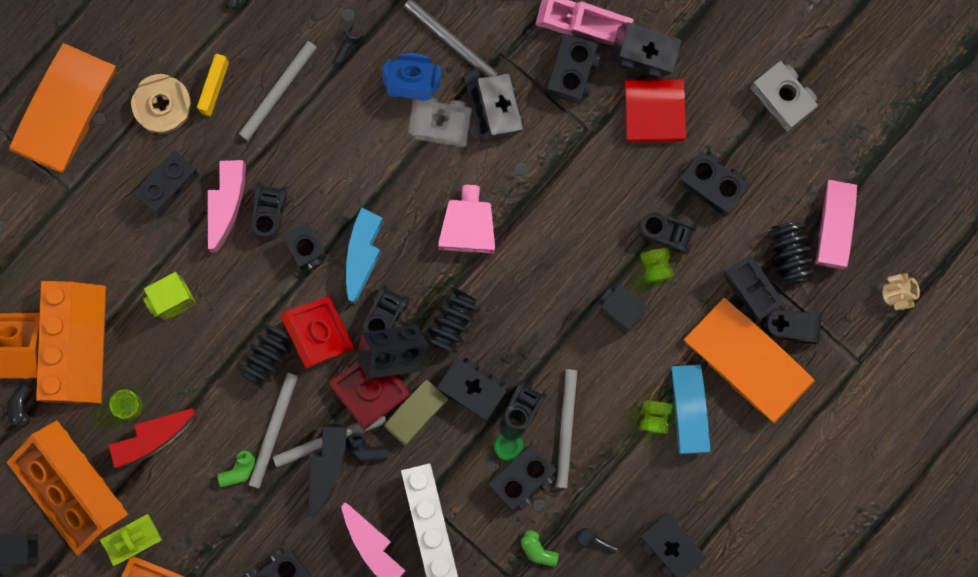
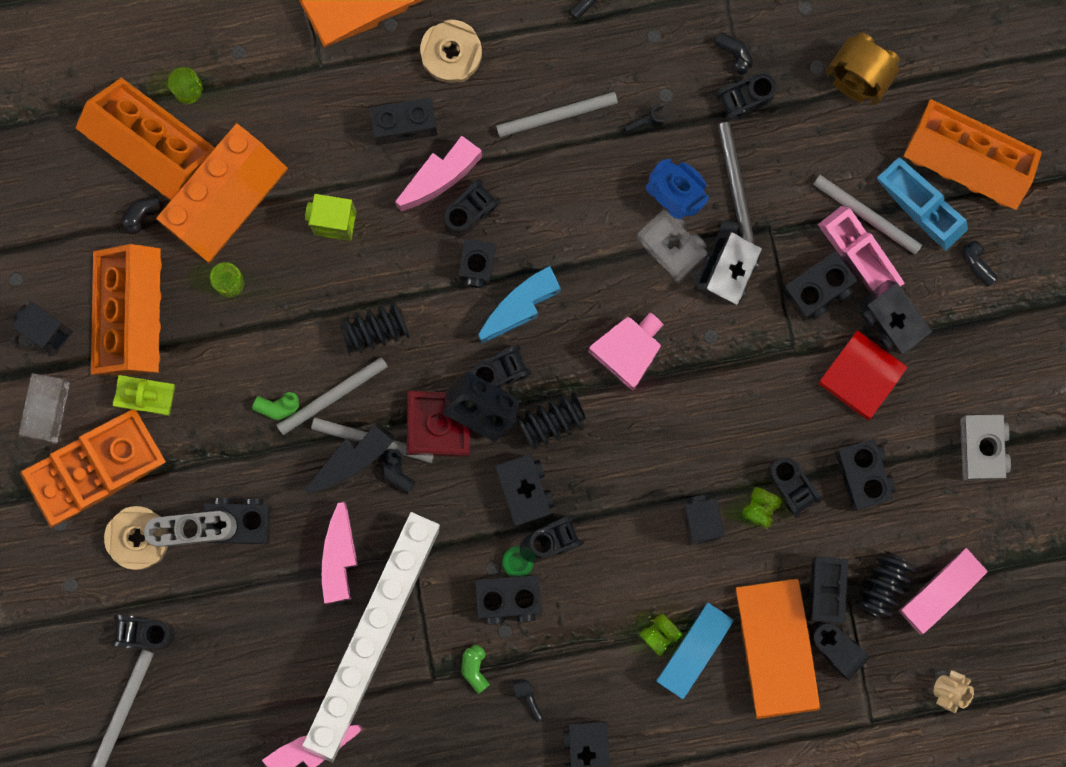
camera: 40 degrees right, 0 degrees up
(150, 438) = (225, 323): red slope -> none
(213, 84) = (506, 68): yellow tile -> none
(317, 332) = (431, 342): red plate -> none
(416, 412) = (461, 473): olive slope -> none
(566, 428) = (577, 585): light grey bar -> none

